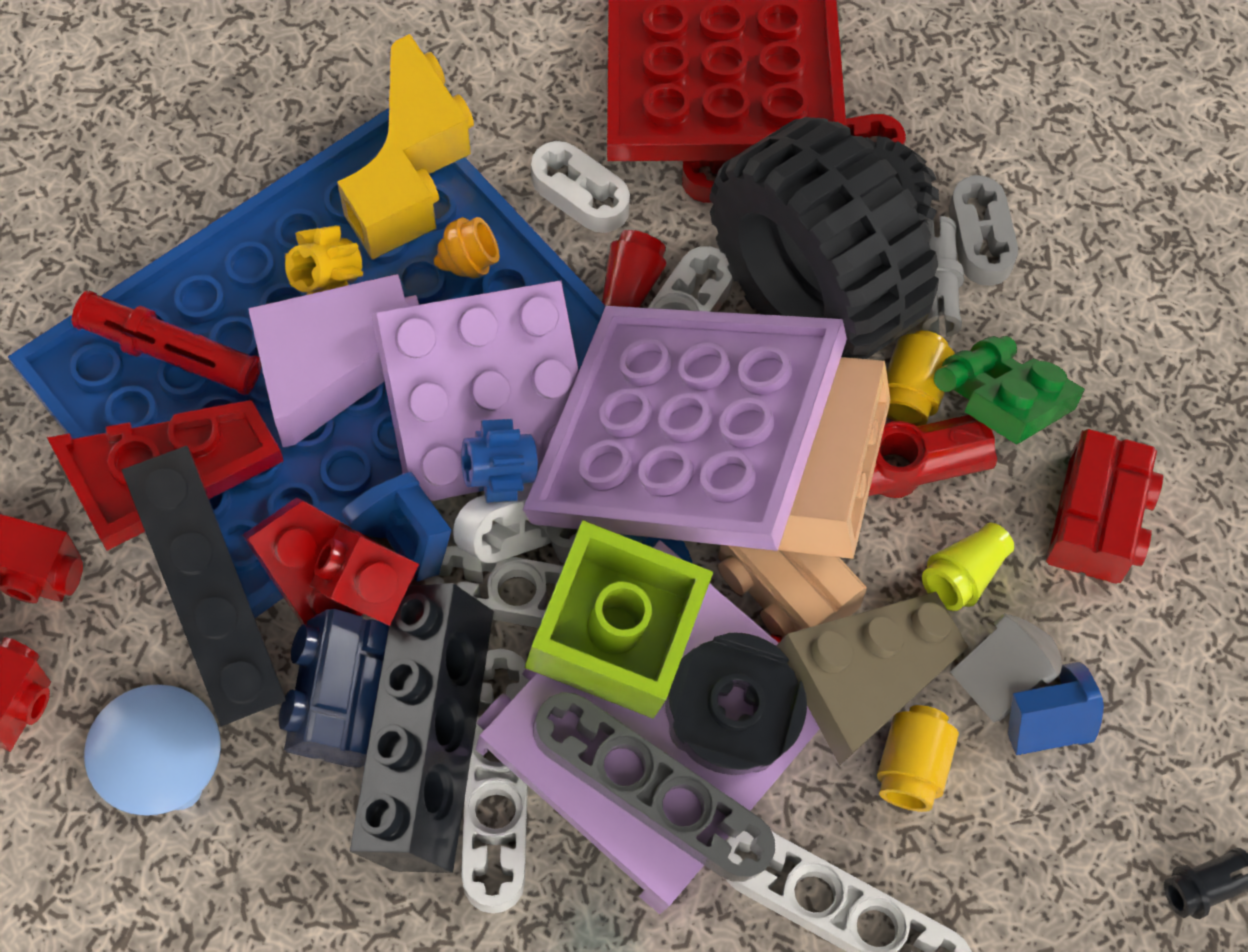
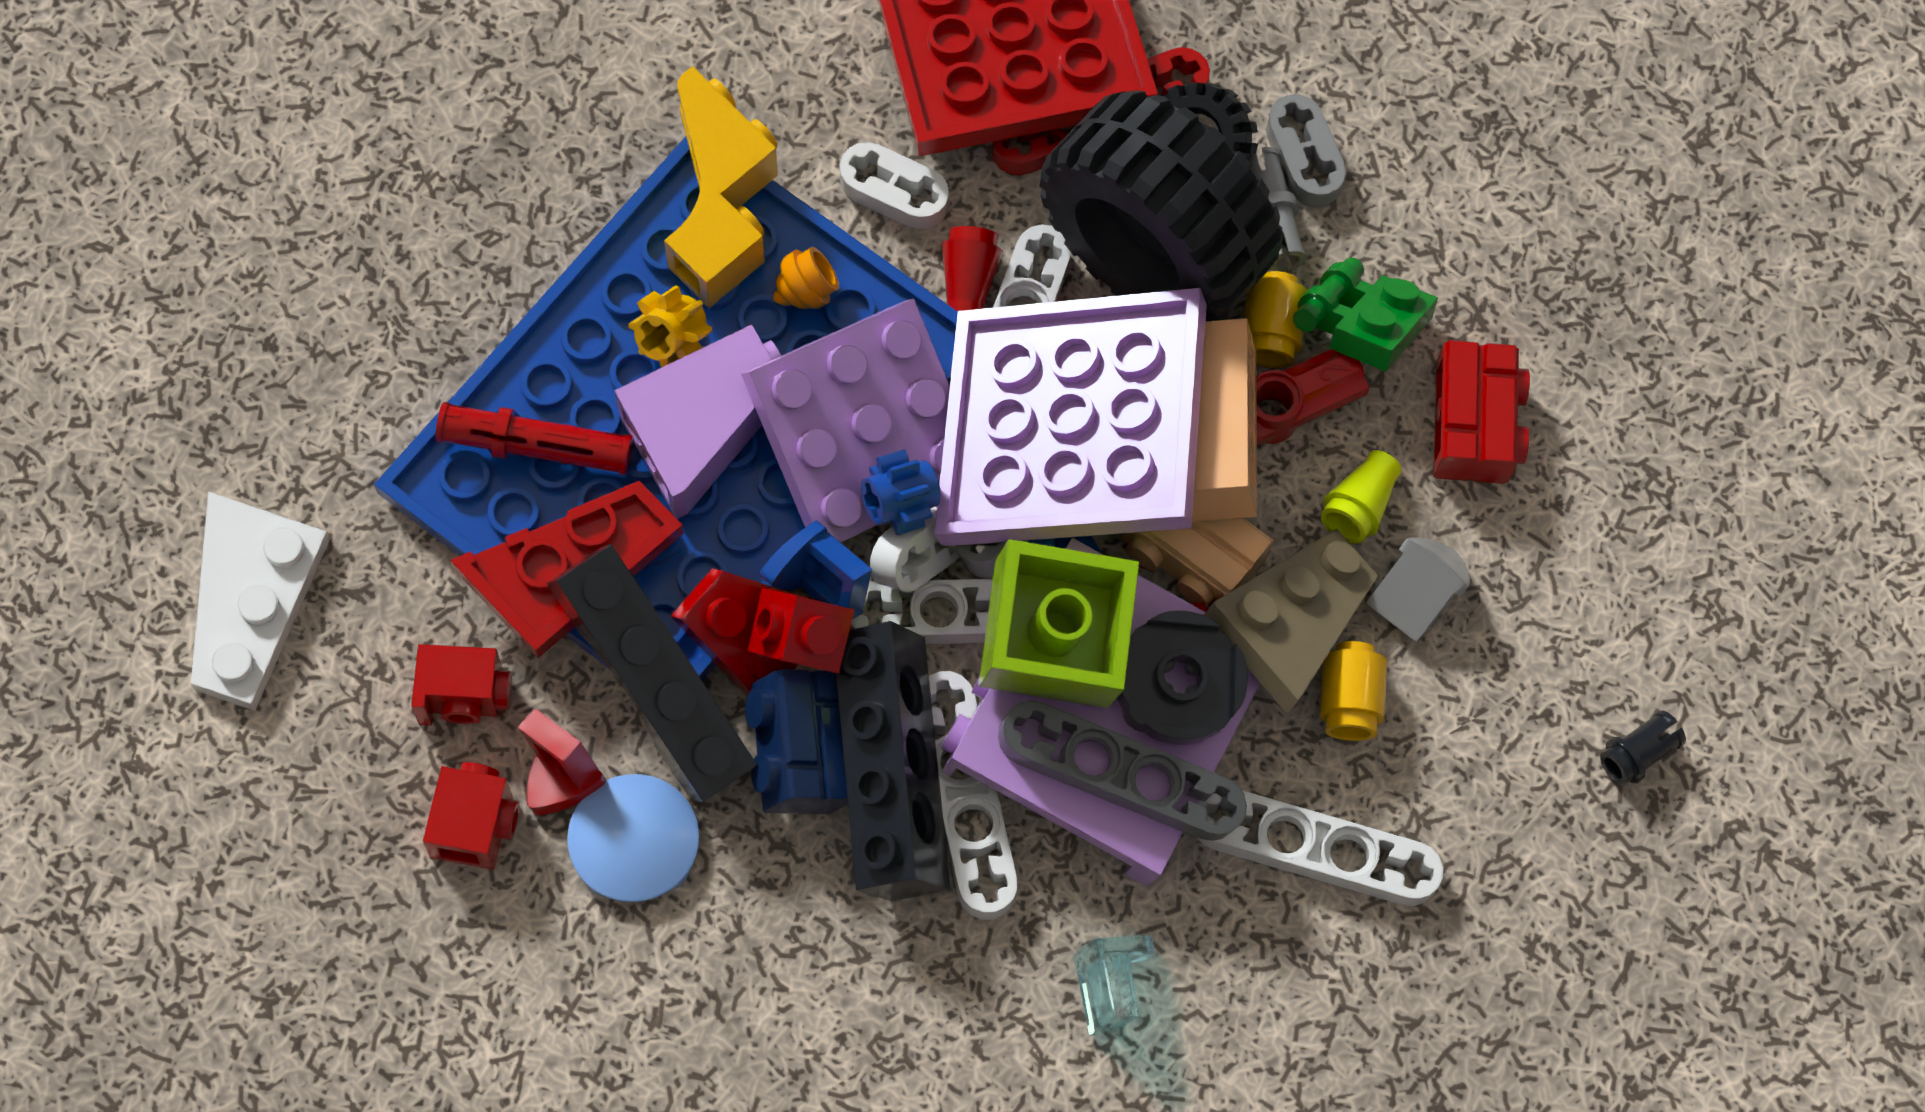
camera: 15 degrees left, 5 degrees up
(100, 668) = (561, 768): none -> tile
(1057, 713) = (1474, 621): blue tile -> none

